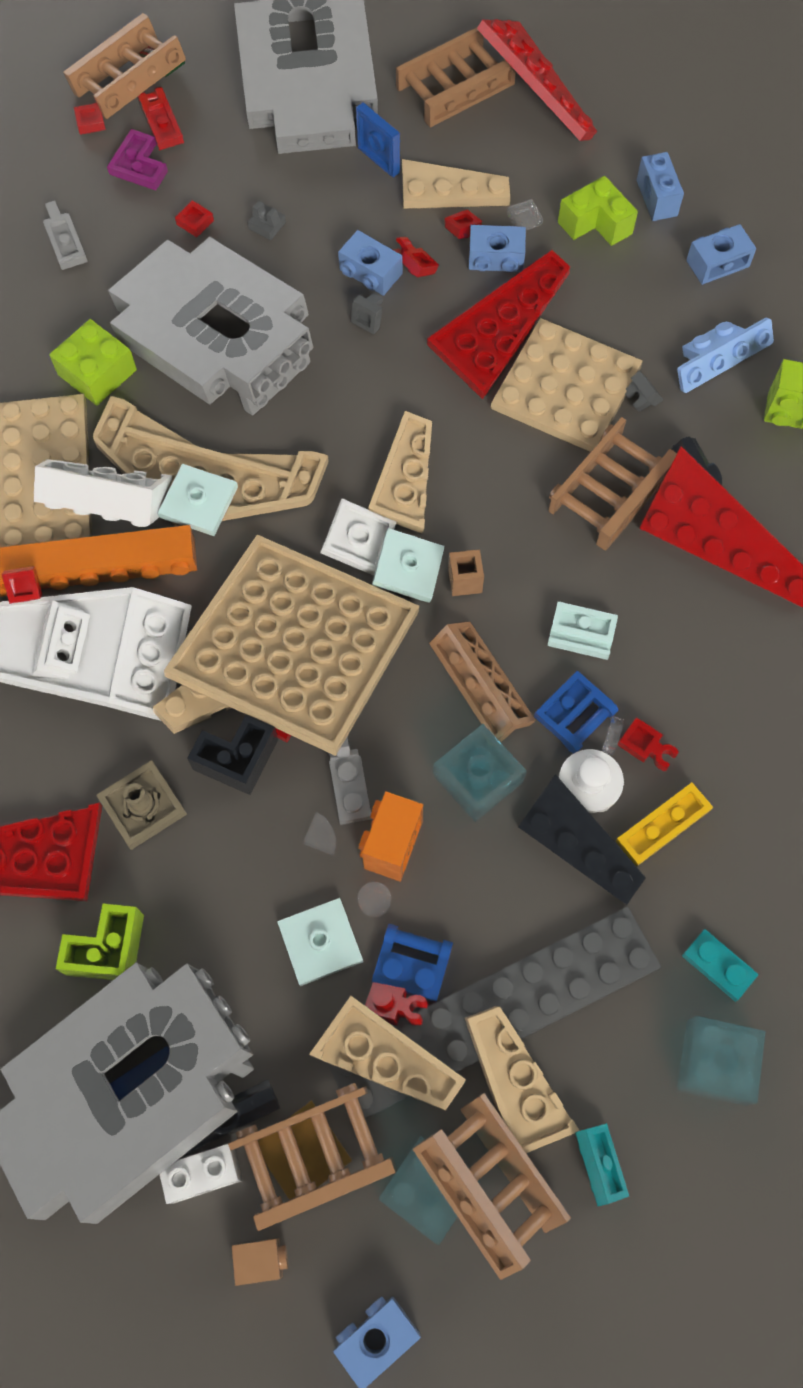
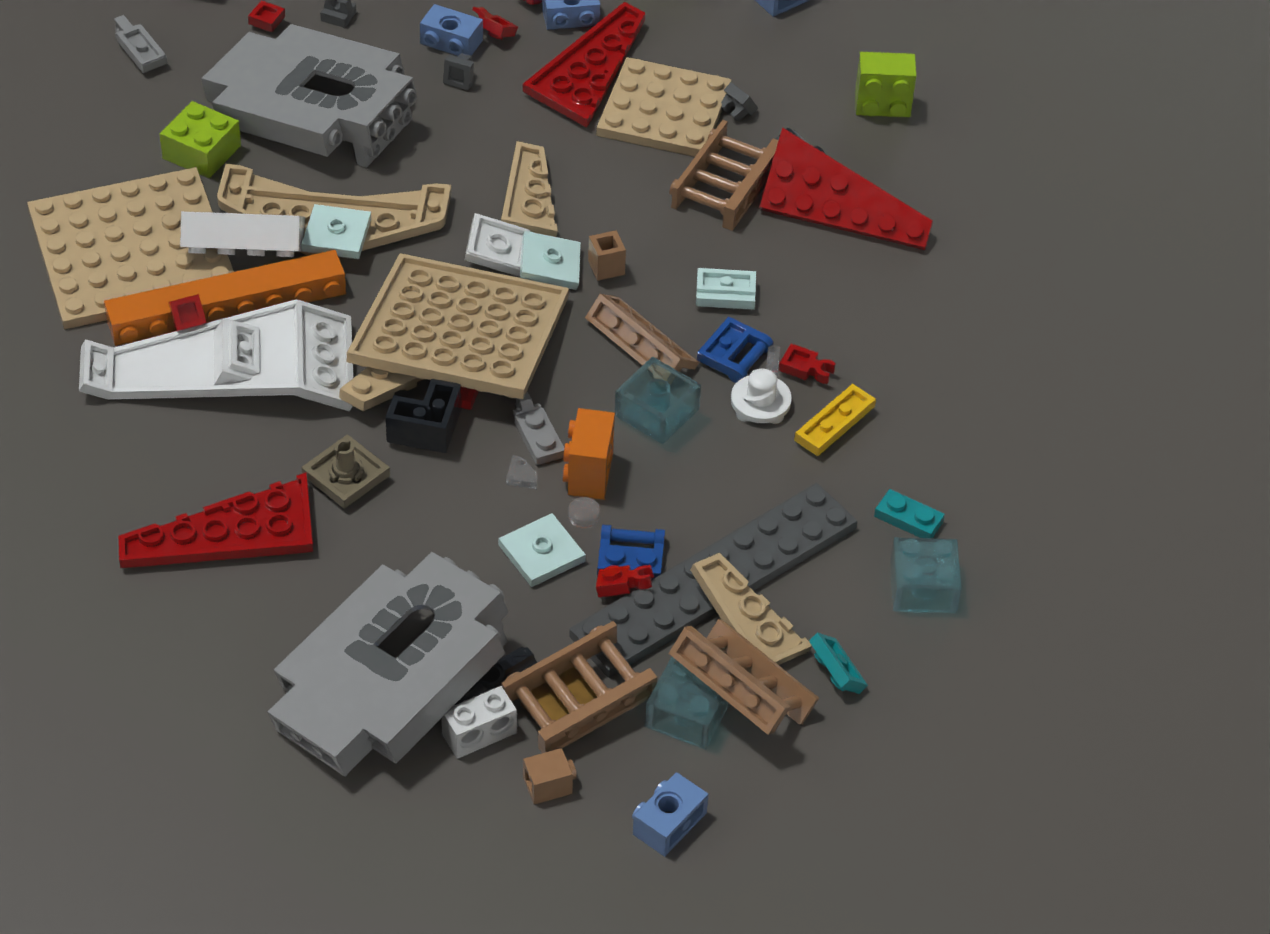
camera: 15 degrees left, 20 degrees down
(107, 953) = (336, 578): lime brick -> none
(381, 1053) = (602, 599): tan wing -> none
(576, 837) = (757, 439): black wing -> none
(721, 350) = (804, 62): light blue bracket -> none

